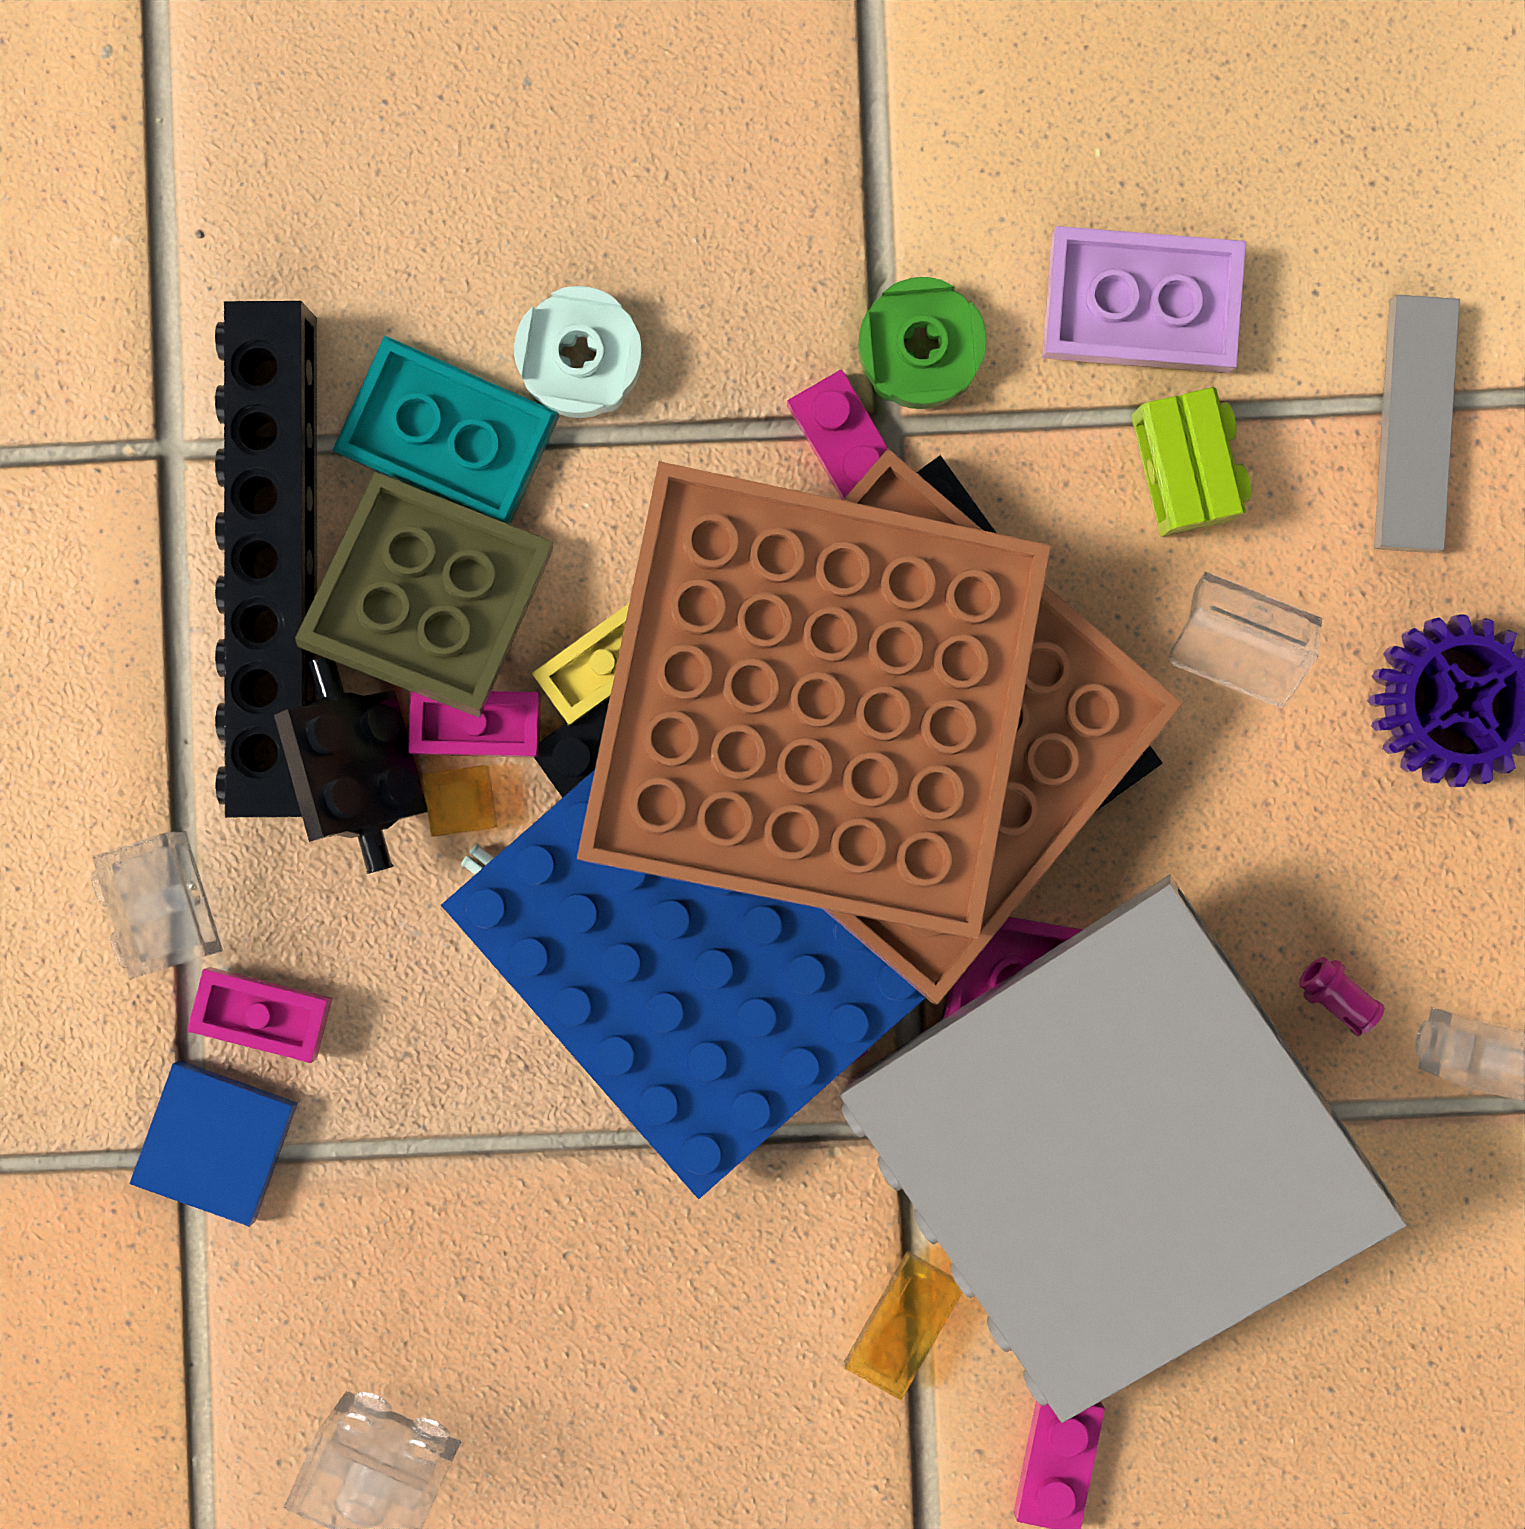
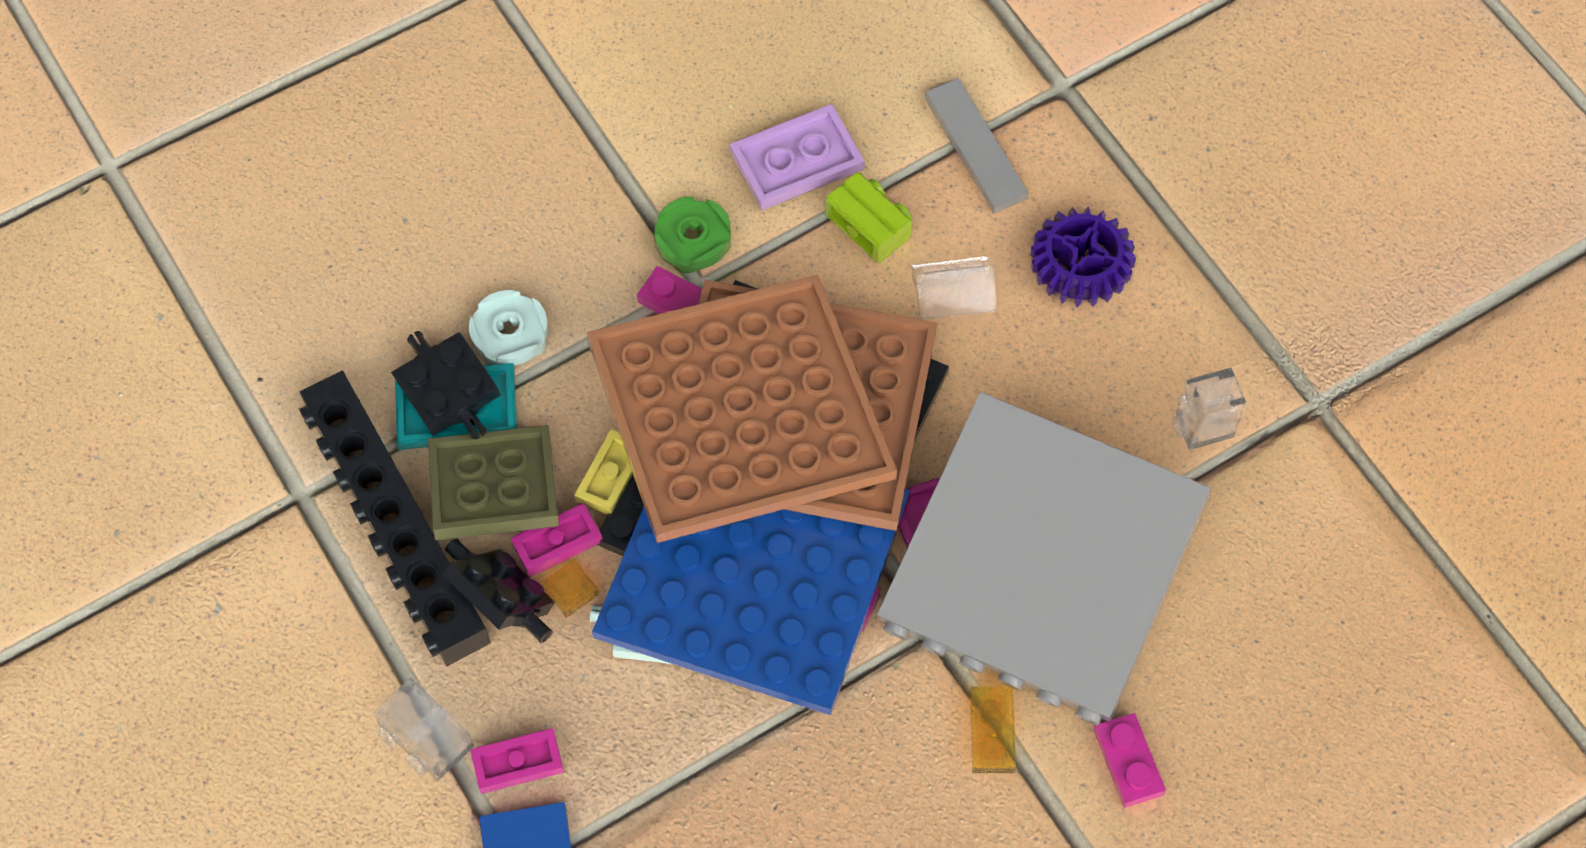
camera: 30 degrees left, 25 degrees down
(439, 400) = (446, 384): none -> black plate
(1340, 995) = (1119, 430): dark pink pin -> none

